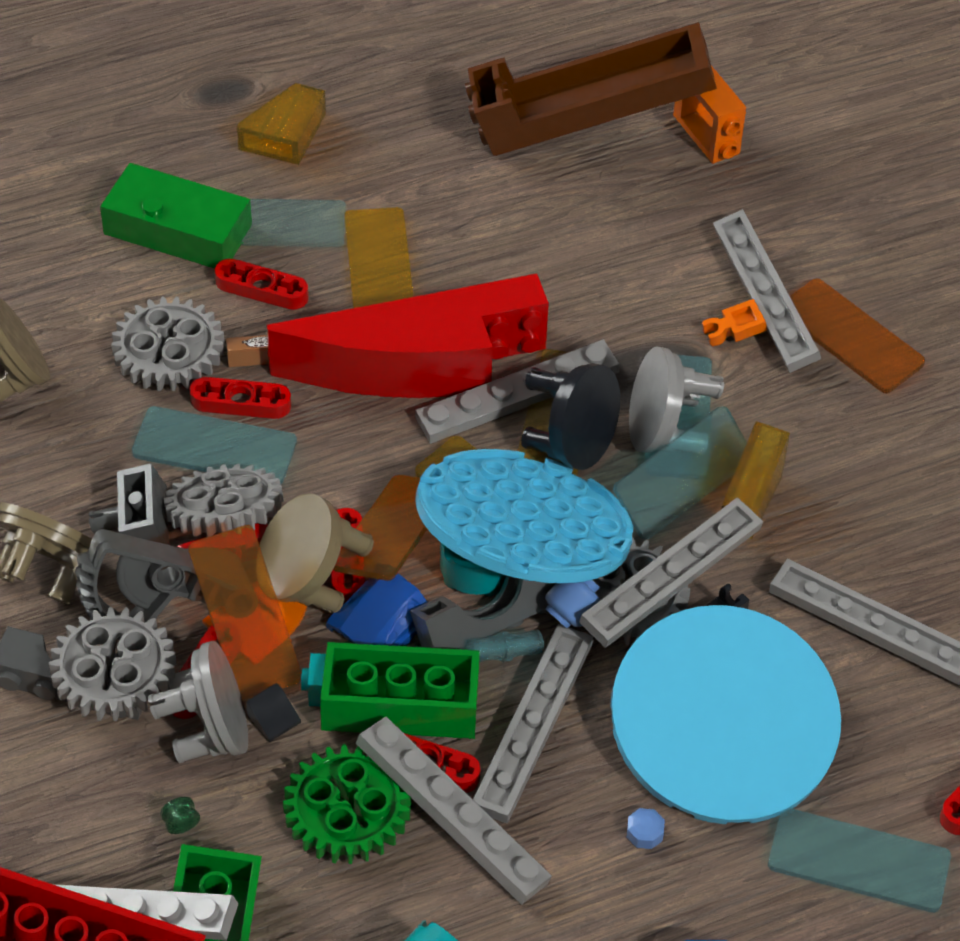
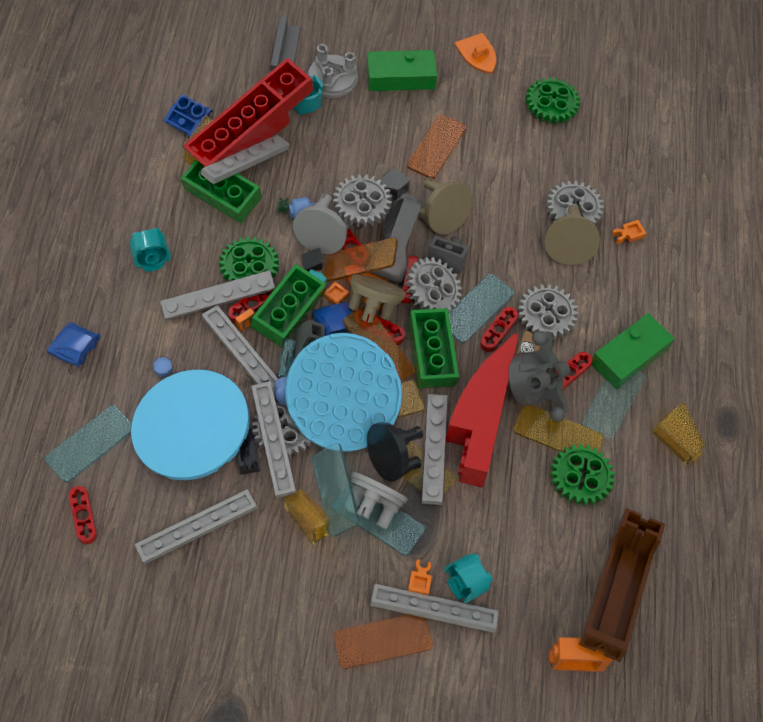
camera: 115 degrees right, 10 degrees up
(169, 778) = (298, 205): none -> medium blue head
(315, 642) = (336, 293): none -> orange tile
(320, 284) = (535, 376): none -> dark grey piece
(349, 450) = (433, 348): none -> green brick
(434, 207) = (564, 469): none -> green gear
(473, 743) = (244, 320): none -> orange tile
(698, 261) = (468, 577): none -> teal brick

